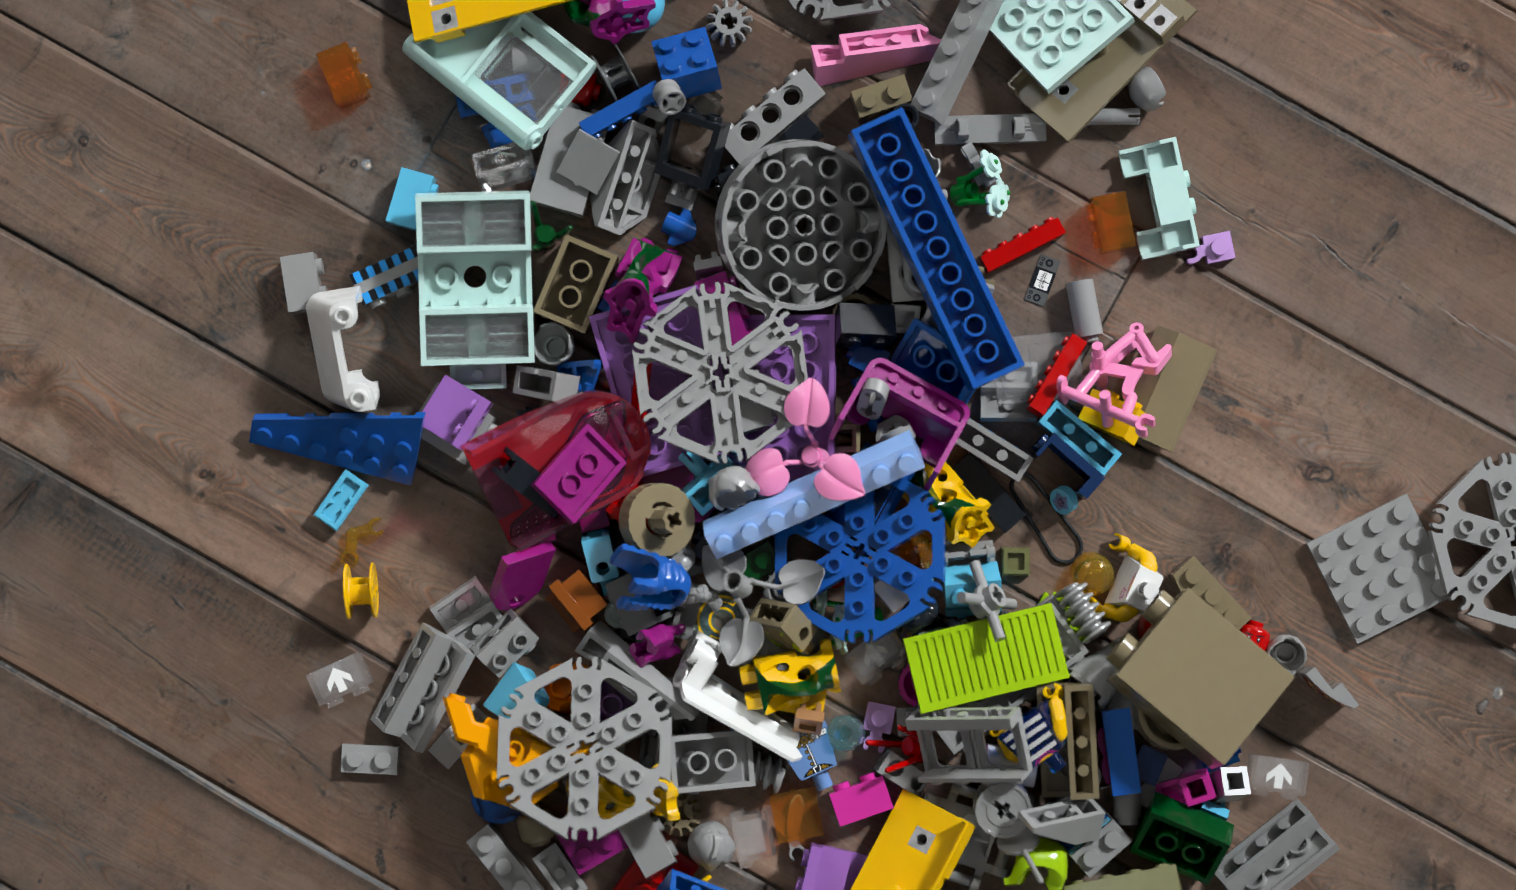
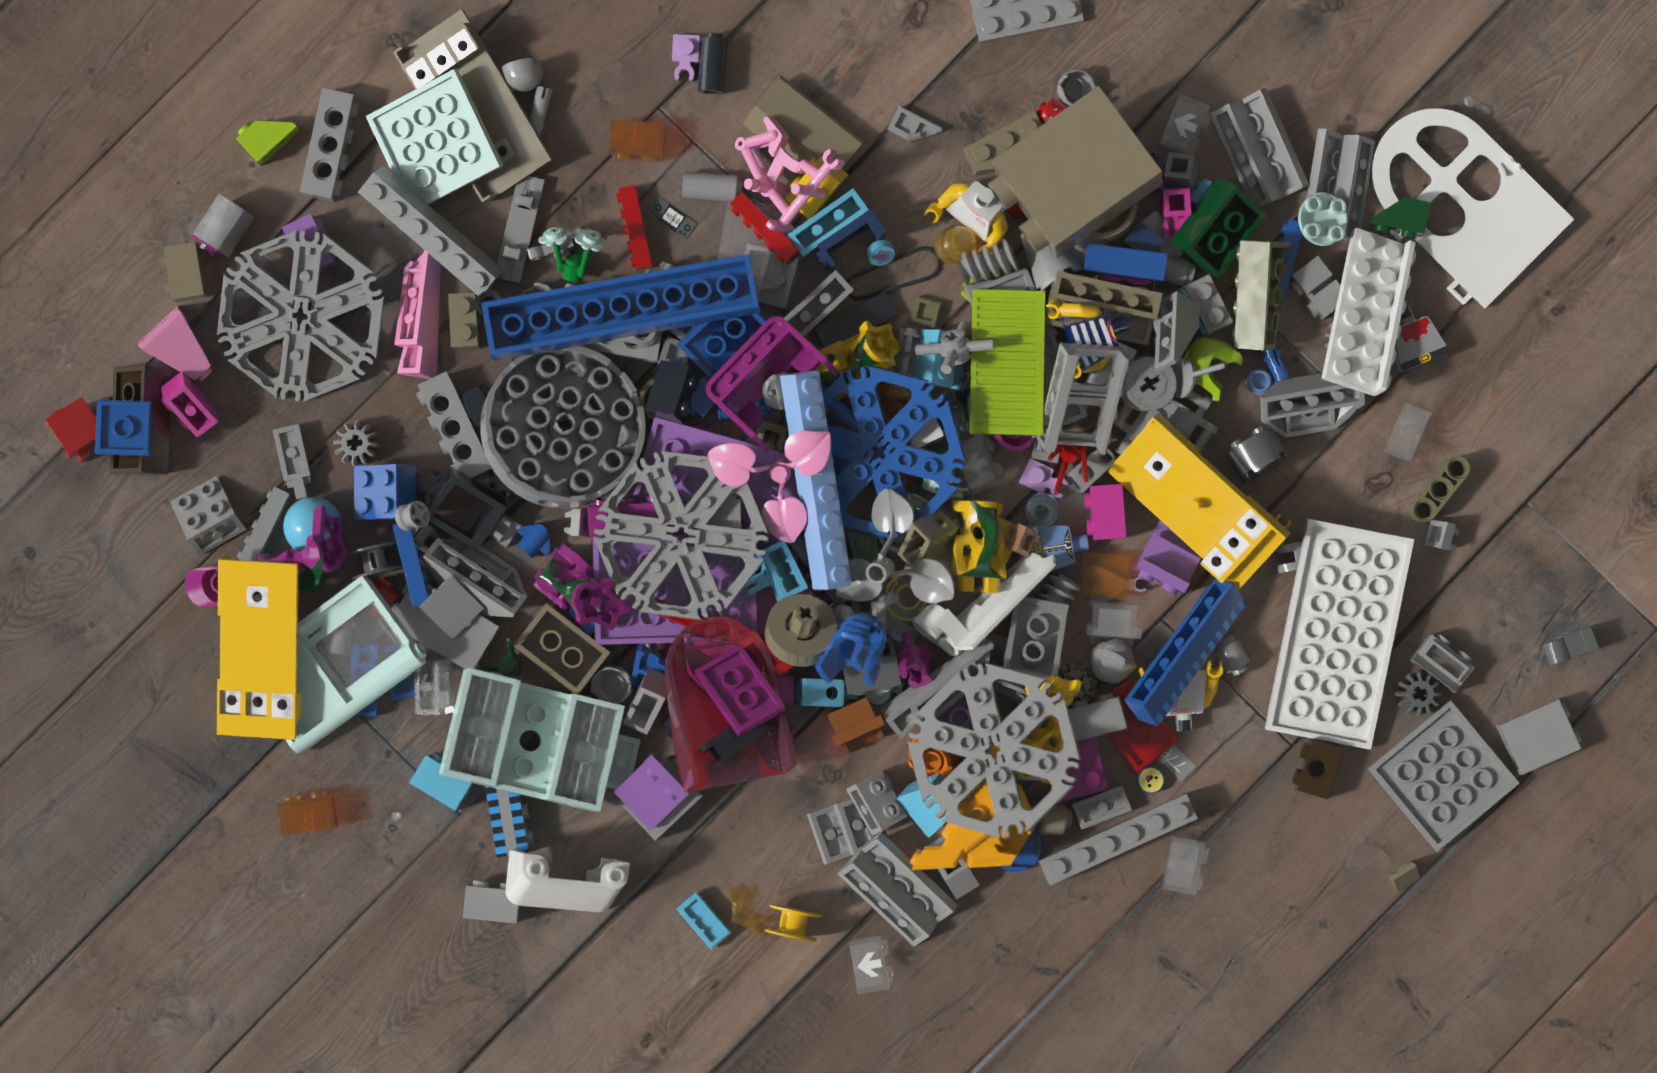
camera: 75 degrees left, 0 degrees up
(356, 441) = (651, 895): blue wing -> none
(370, 759) = (950, 956): light grey plate -> none
(521, 576) = (819, 770): magenta tile -> none
(732, 488) = (790, 553): light grey hair -> none
(873, 398) = (742, 401): light grey beam -> none
(1168, 196) = (626, 81): light aqua bracket -> none
(1201, 497) = (912, 126): none -> light grey tile
(1209, 278) = (712, 64): none -> black brick
(1331, 691) = (1120, 55): light grey slope -> none

